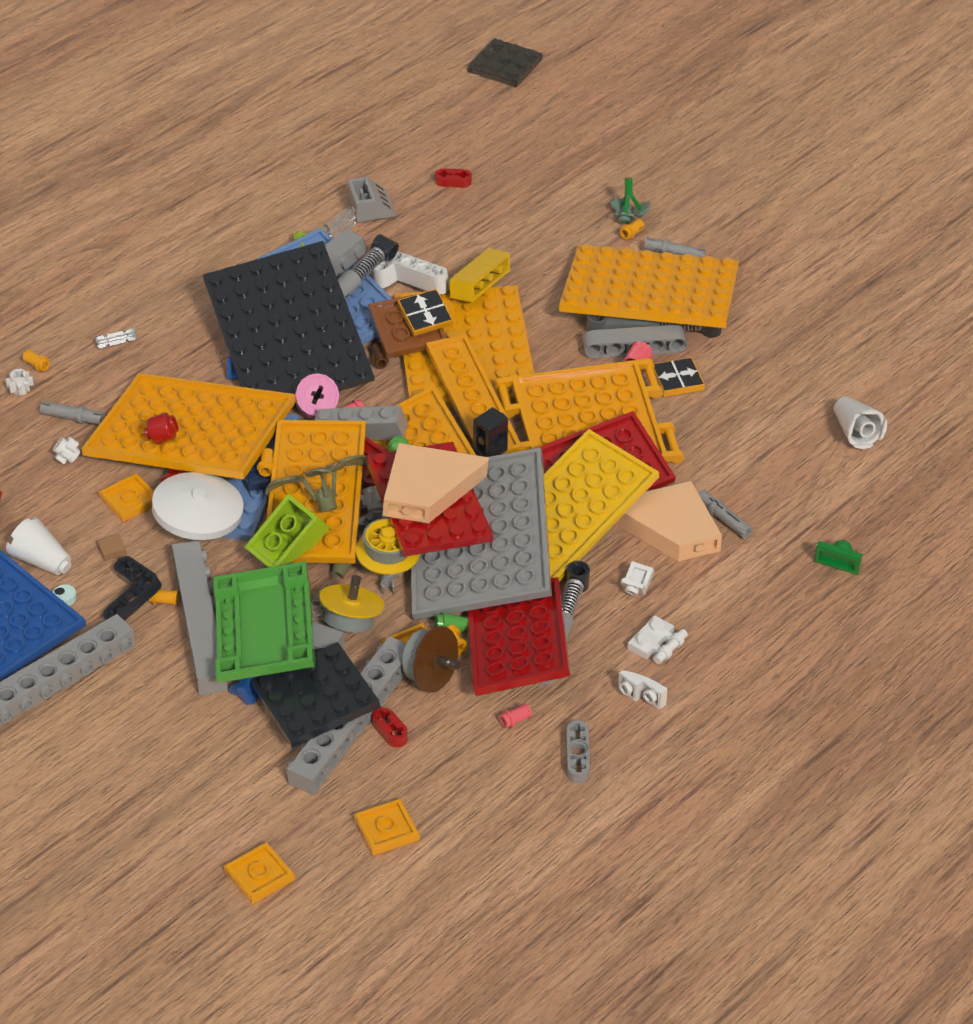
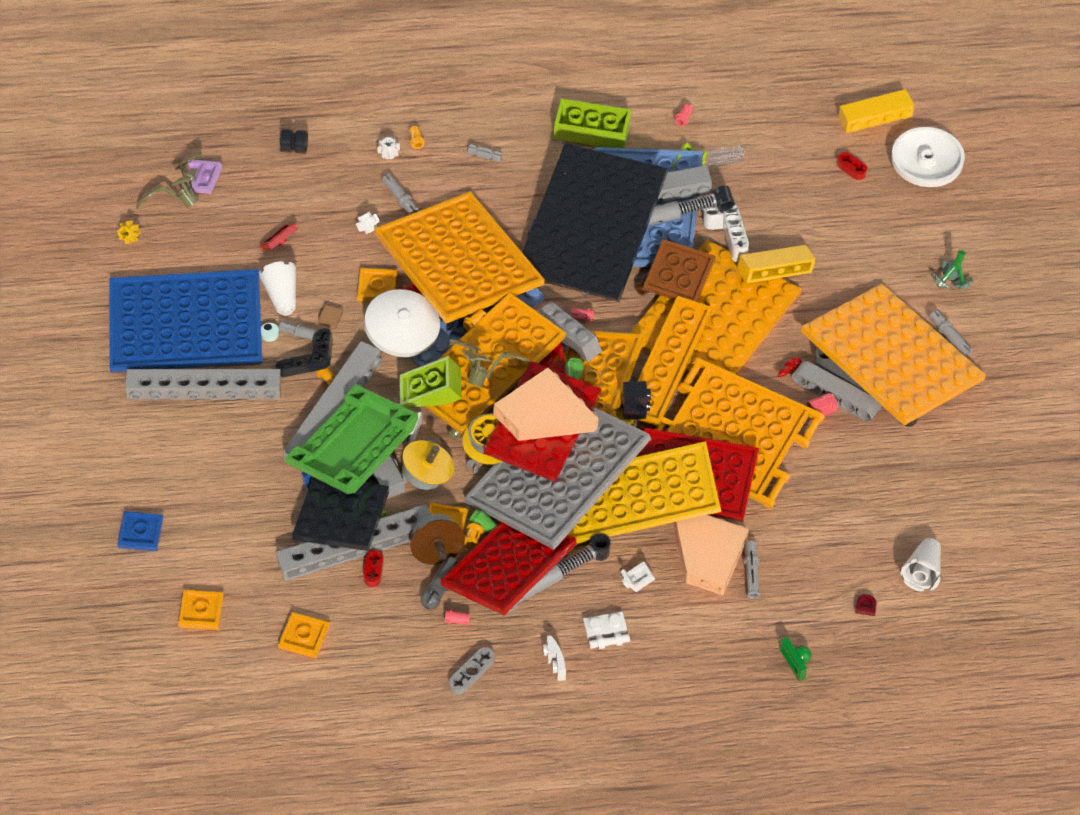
camera: 40 degrees right, 10 degrees up
(93, 577) = (297, 330): none -> light grey axle
(119, 845) = (140, 531): none -> blue tile
(161, 428) = (429, 248): red head -> none
(186, 262) = (592, 124): none -> lime brick
(267, 217) = (682, 117): none -> coral pin
(309, 386) = (553, 284): bright pink piece -> none
(369, 200) = (766, 148): light grey slope -> none
(425, 312) = (696, 271): black tile -> none
(429, 128) = (876, 111): none -> yellow brick
(473, 712) = (431, 597): none -> dark grey piece
(505, 62) = (1000, 85): clear smoke plate -> none
(511, 135) = (927, 156): none -> white dish
(575, 346) = (790, 366): none -> red bar
(629, 230) = (937, 295): light orange pin -> none
(678, 377) = (839, 440): tile -> none
(844, 483) = (866, 605): none -> dark red tile

